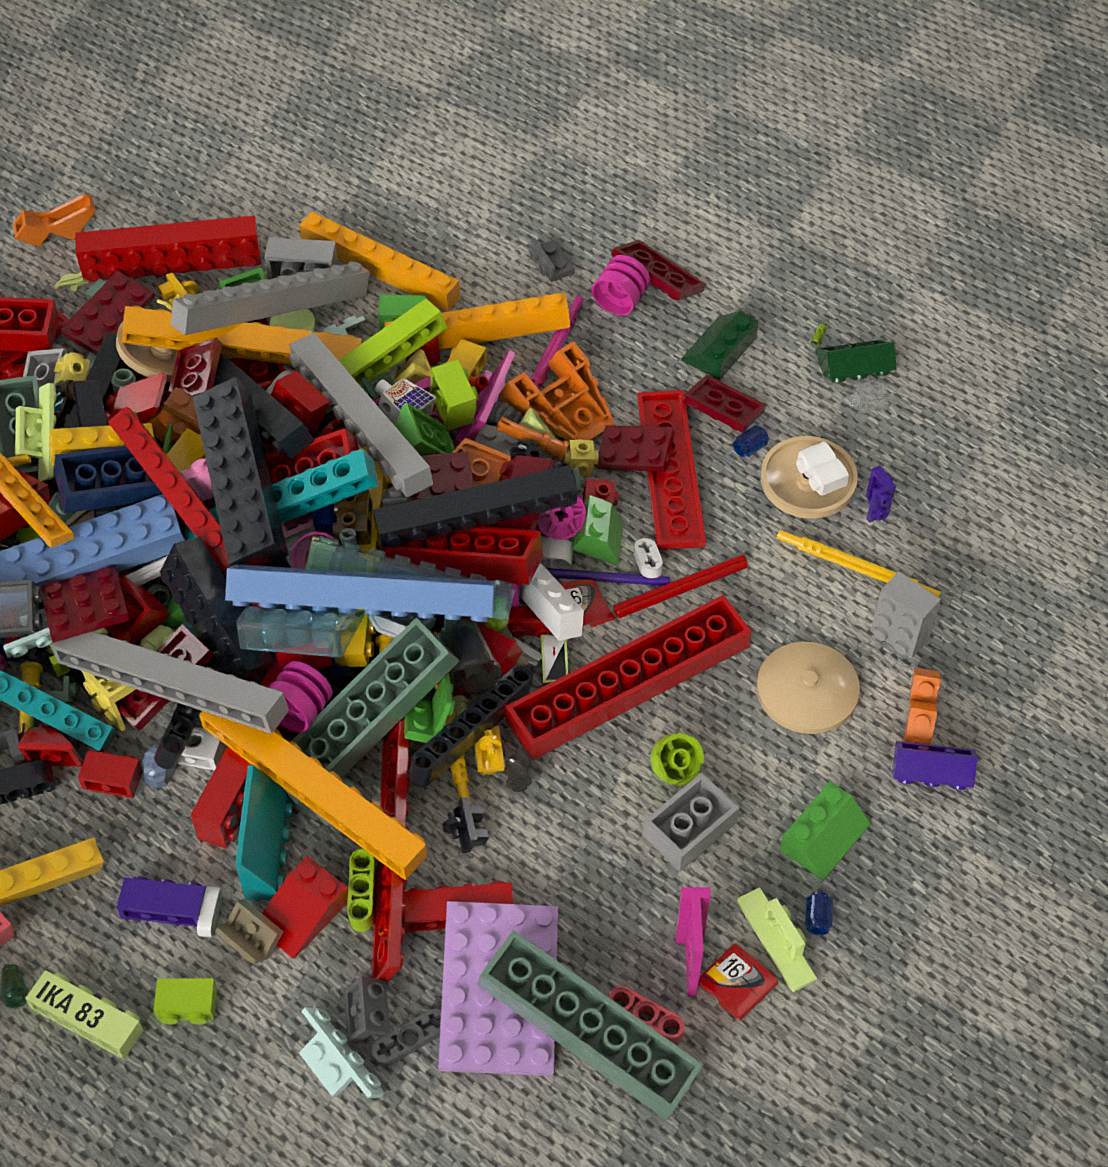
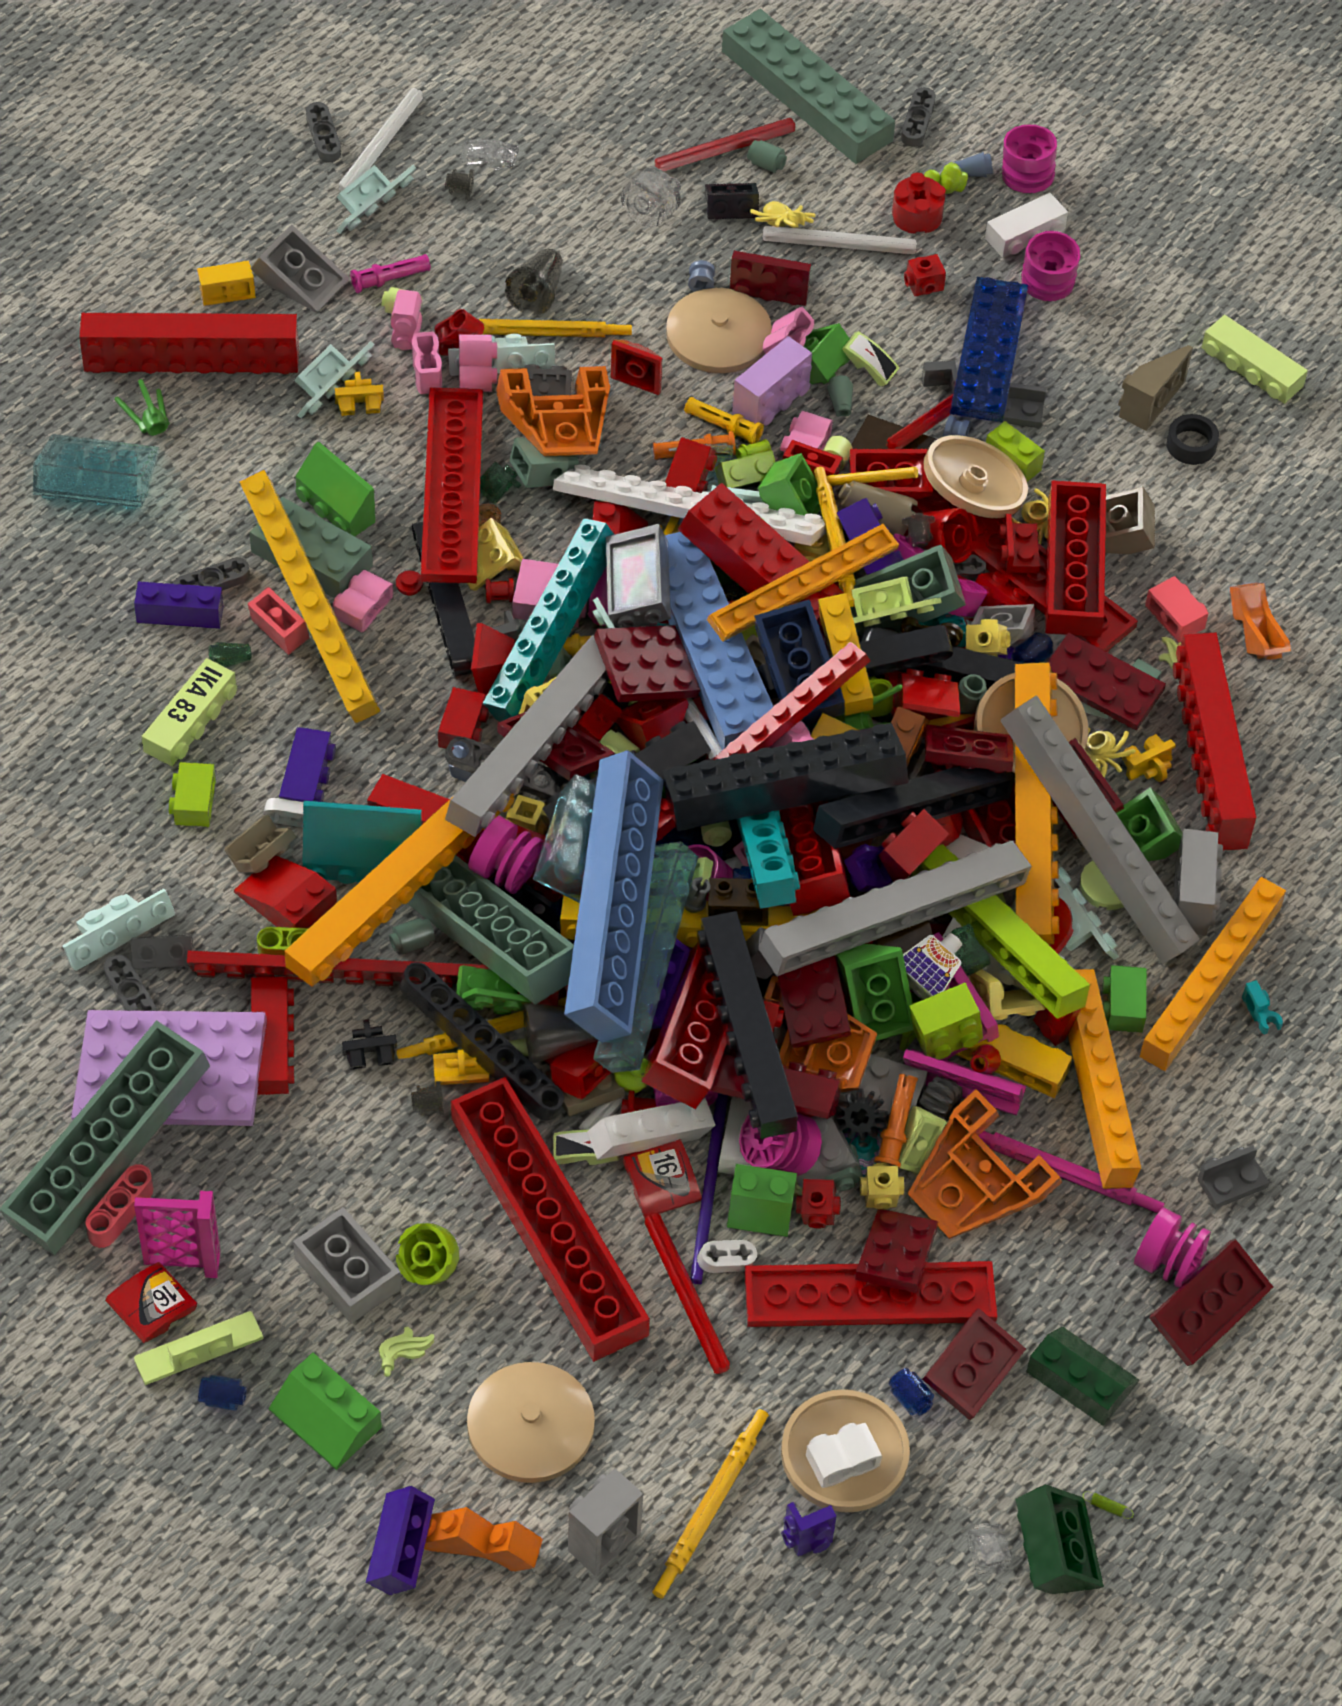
camera: 90 degrees right, 0 degrees up
(31, 274) = (1176, 608): none -> coral brick
(406, 237) = (1257, 1003): none -> teal plate
(752, 783) = (403, 1346): none -> yellowish green piece

